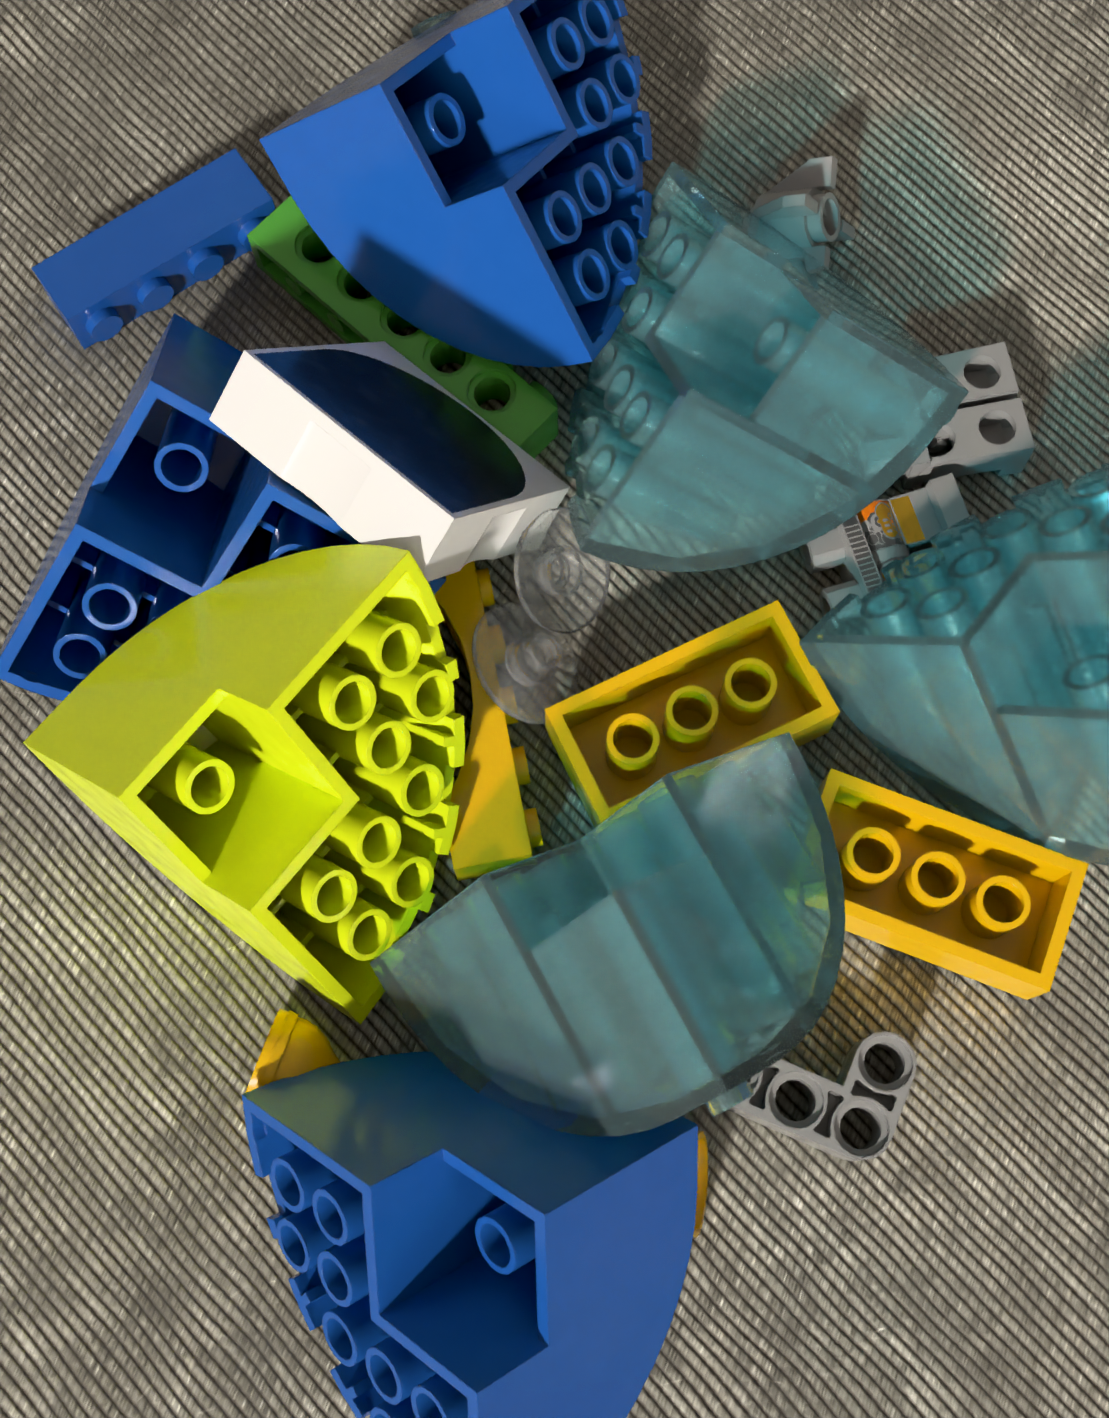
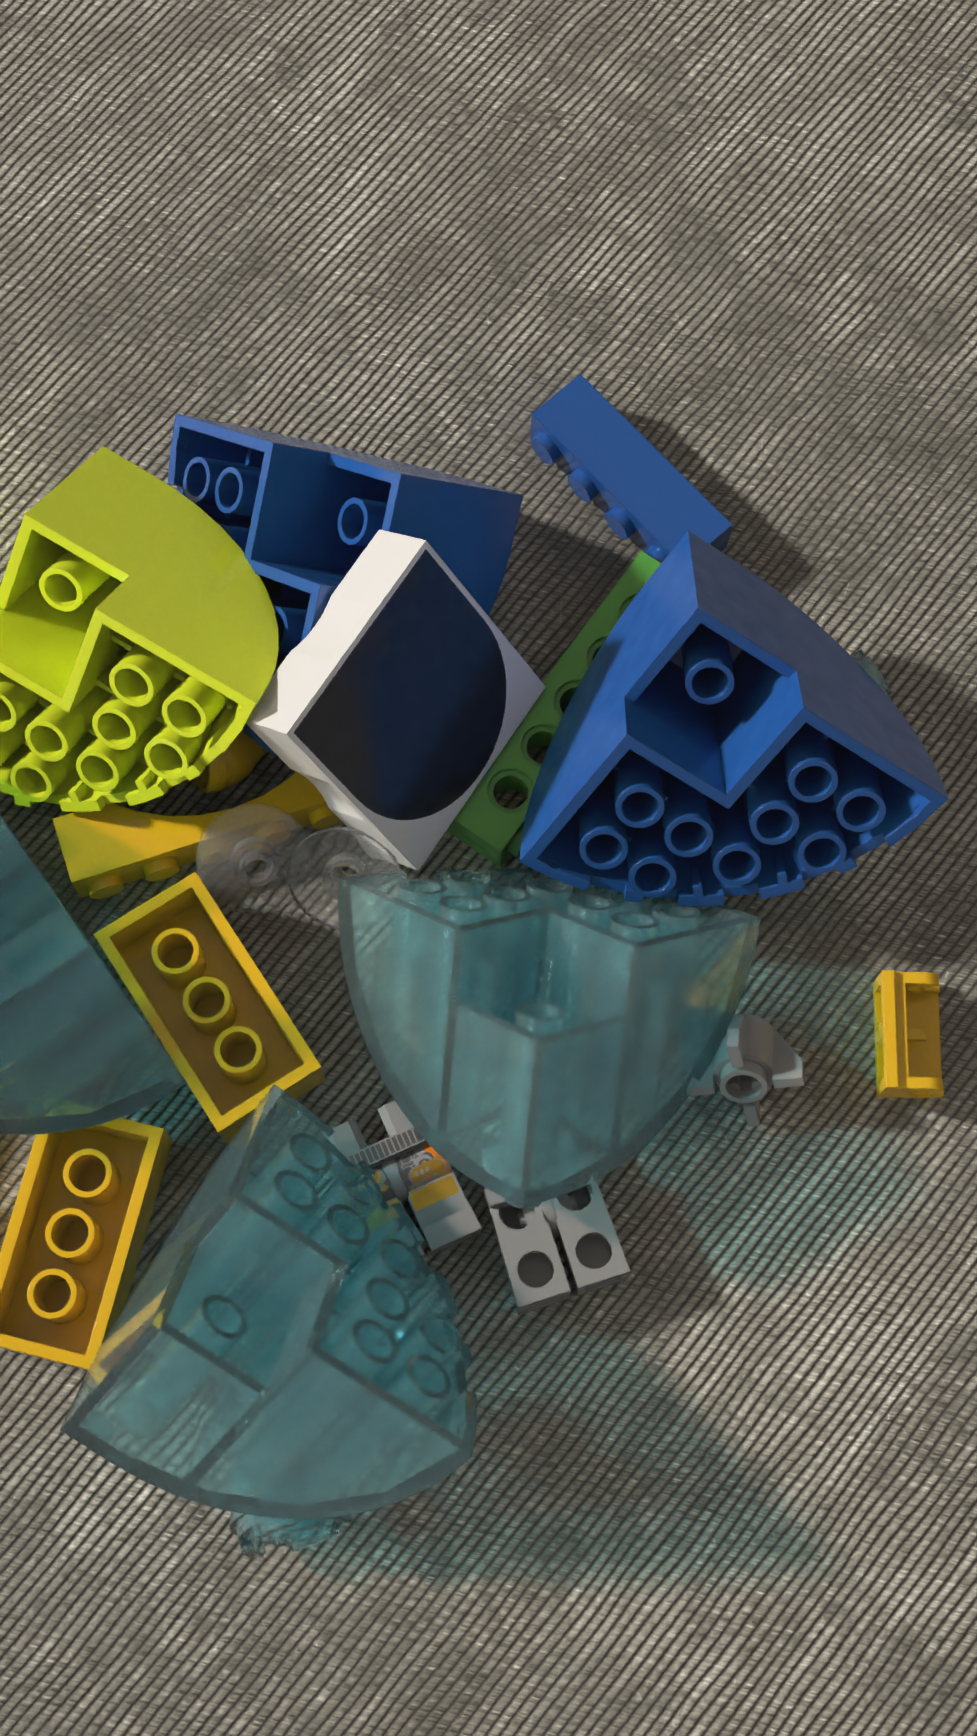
camera: 80 degrees right, 0 degrees up
(781, 94) = (907, 1035): none -> yellow hinge

